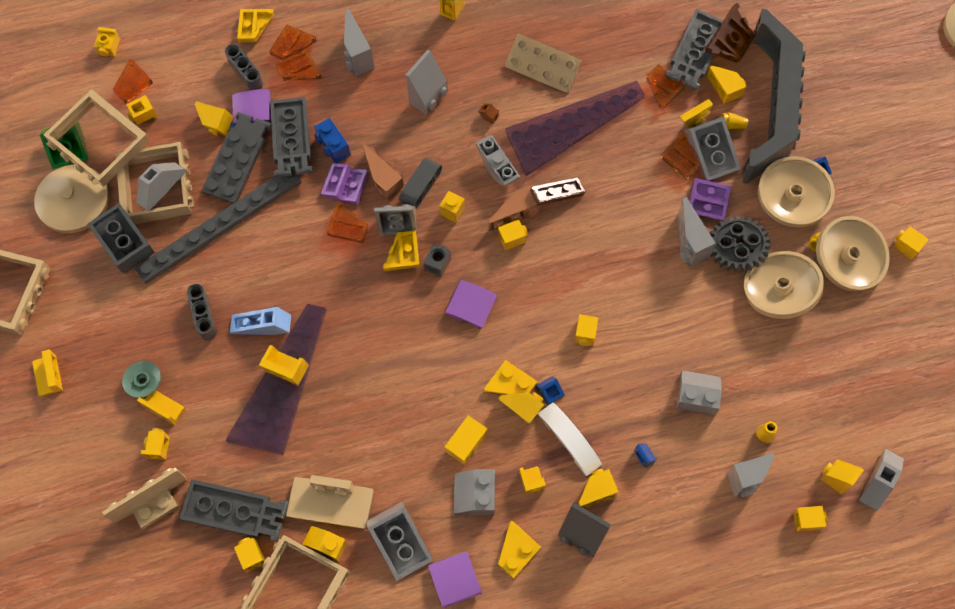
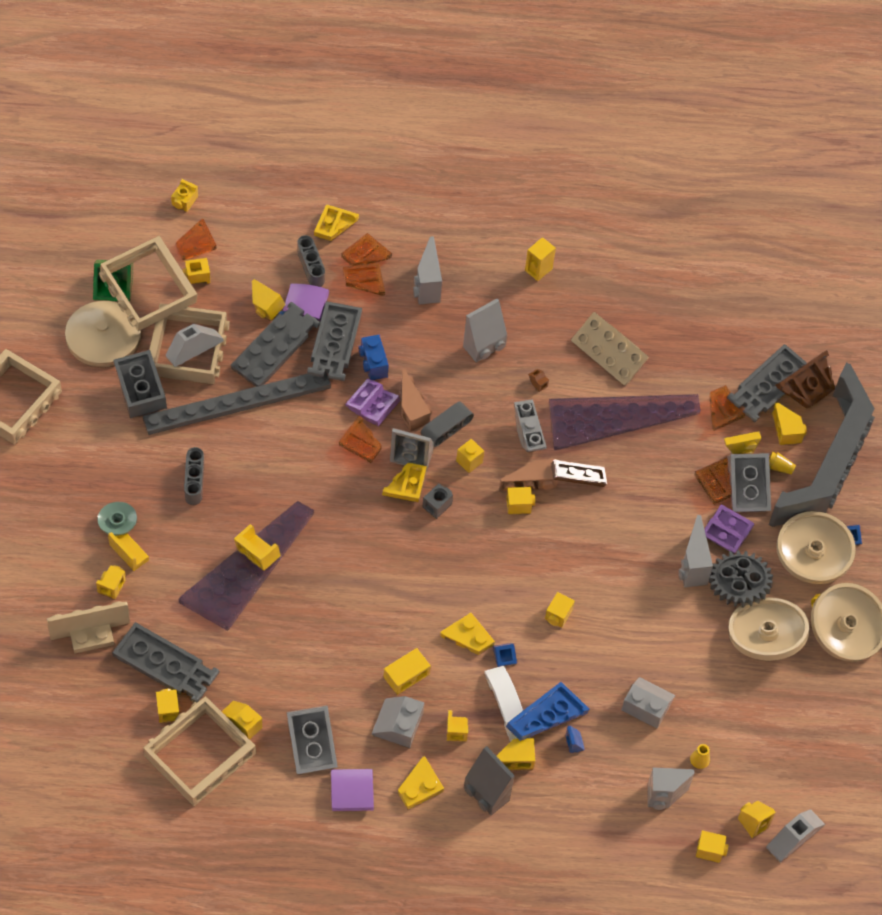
camera: 10 degrees right, 10 degrees down
(47, 374) = (28, 486): yellow panel -> none
(261, 322) = (248, 503): light blue slope -> none
(330, 501) = (258, 683): tan bracket -> none
(471, 304) = (455, 551): medium lavender slope -> none
(524, 404) = (474, 656): yellow slope -> none
(612, 436) = (550, 710): none -> blue wing

